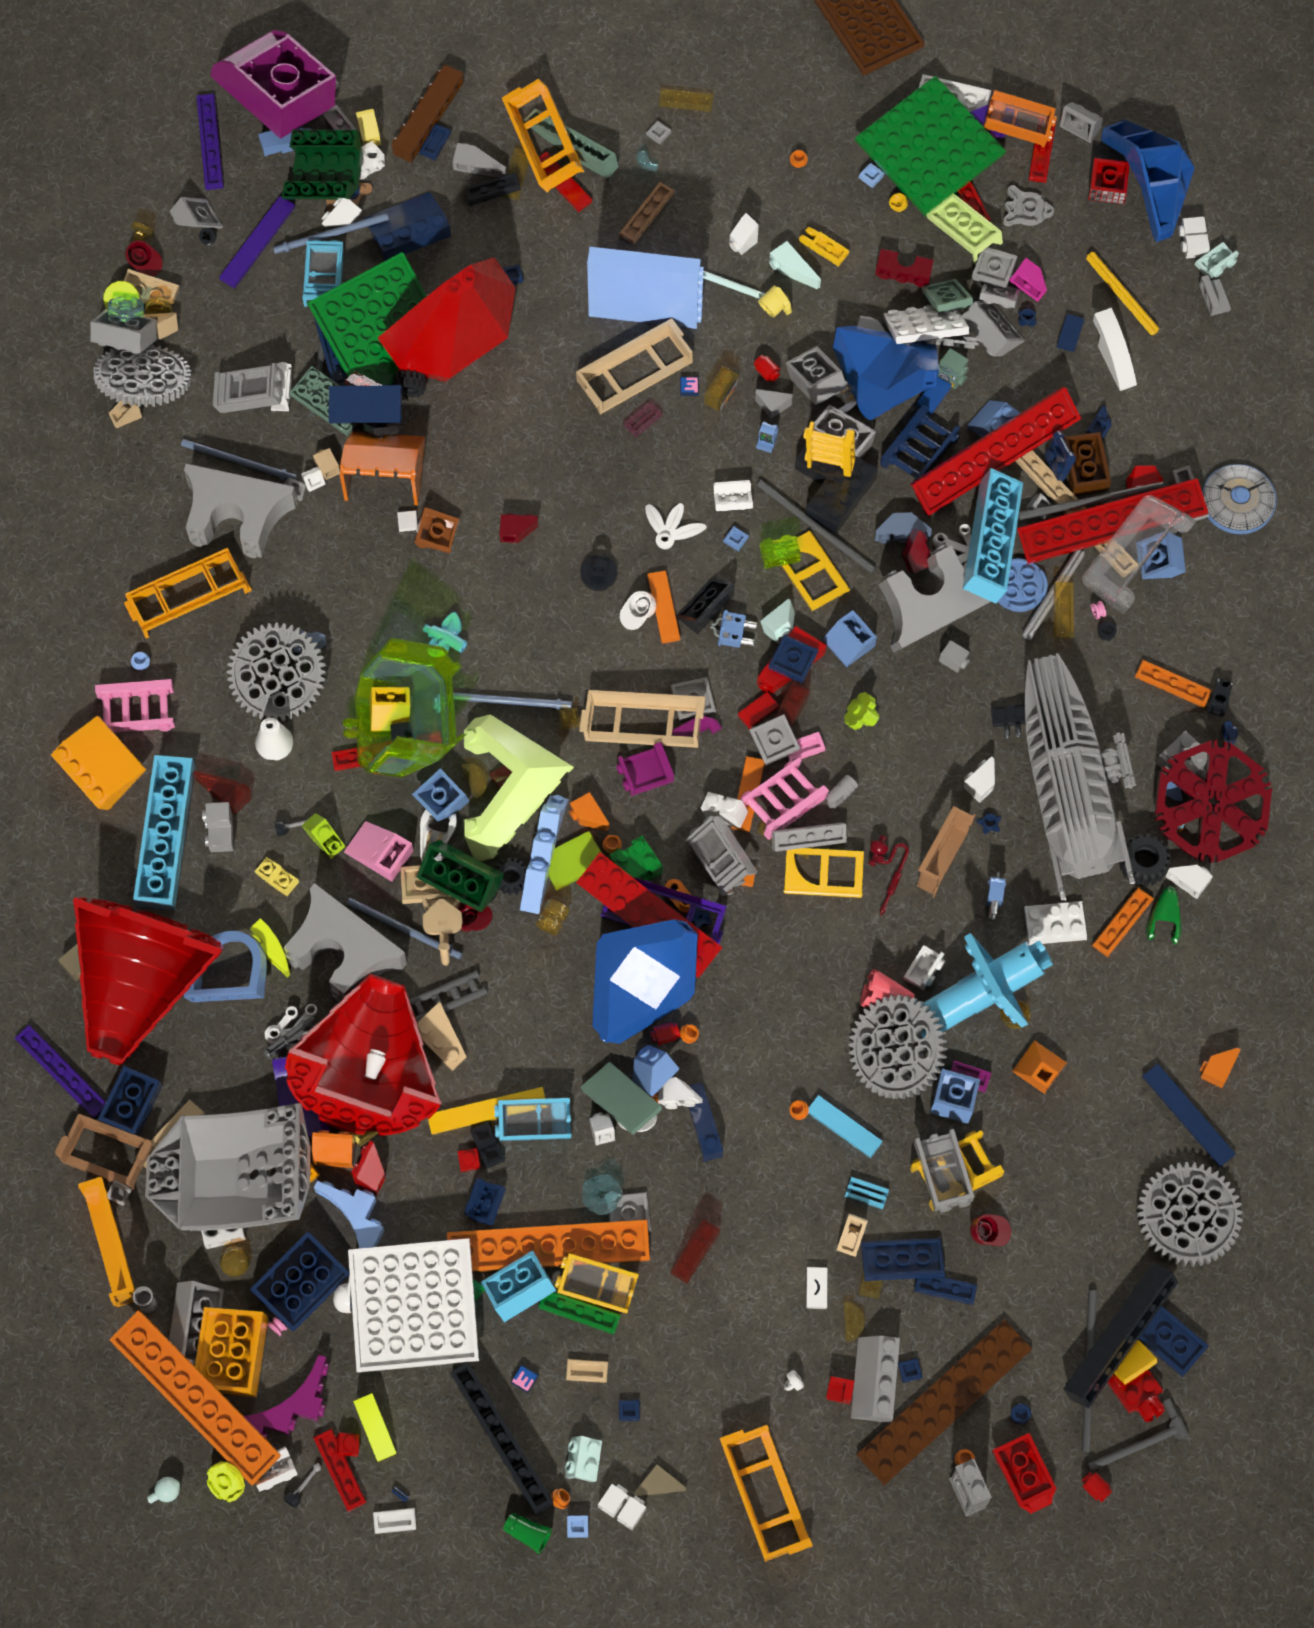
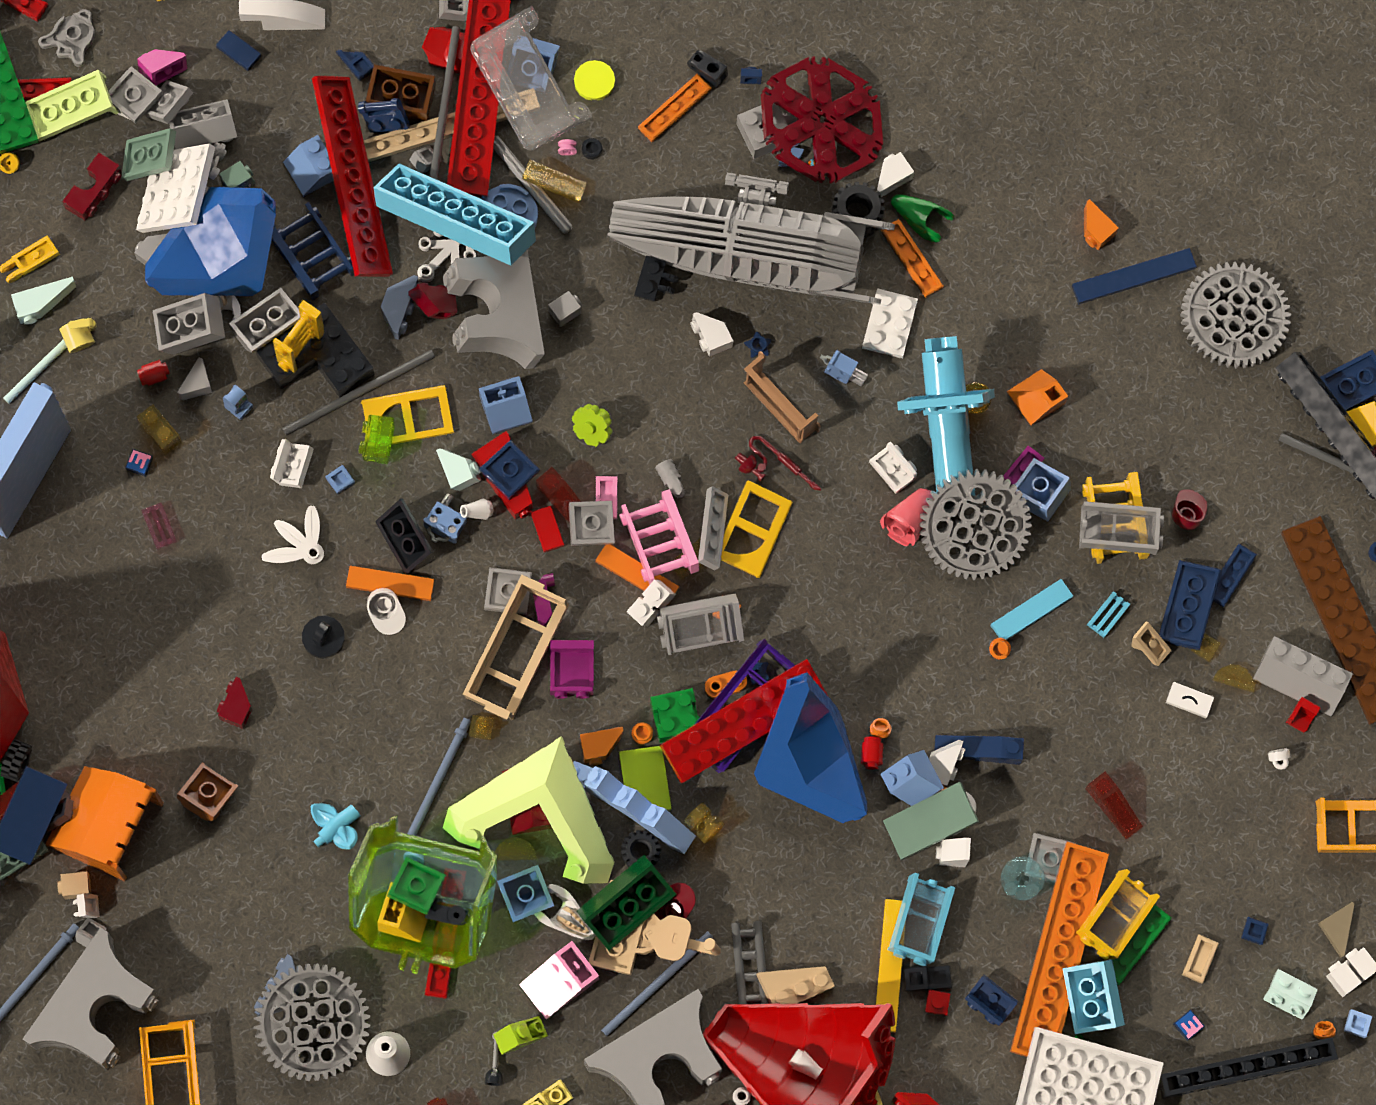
camera: 75 degrees left, 5 degrees up
(407, 521) = (179, 820): white tile -> none
(412, 706) = (416, 885): none -> green tile
(528, 1532) = (1349, 1075): green plant -> none
(630, 349) = (75, 453): tan piece -> none
(751, 648) = (479, 509): none -> white cone
(910, 1370) = (1303, 639): dark blue tile -> none
(1027, 313) = (202, 80): dark blue plate -> none
(1169, 611) = (594, 80): none -> neon yellow tile

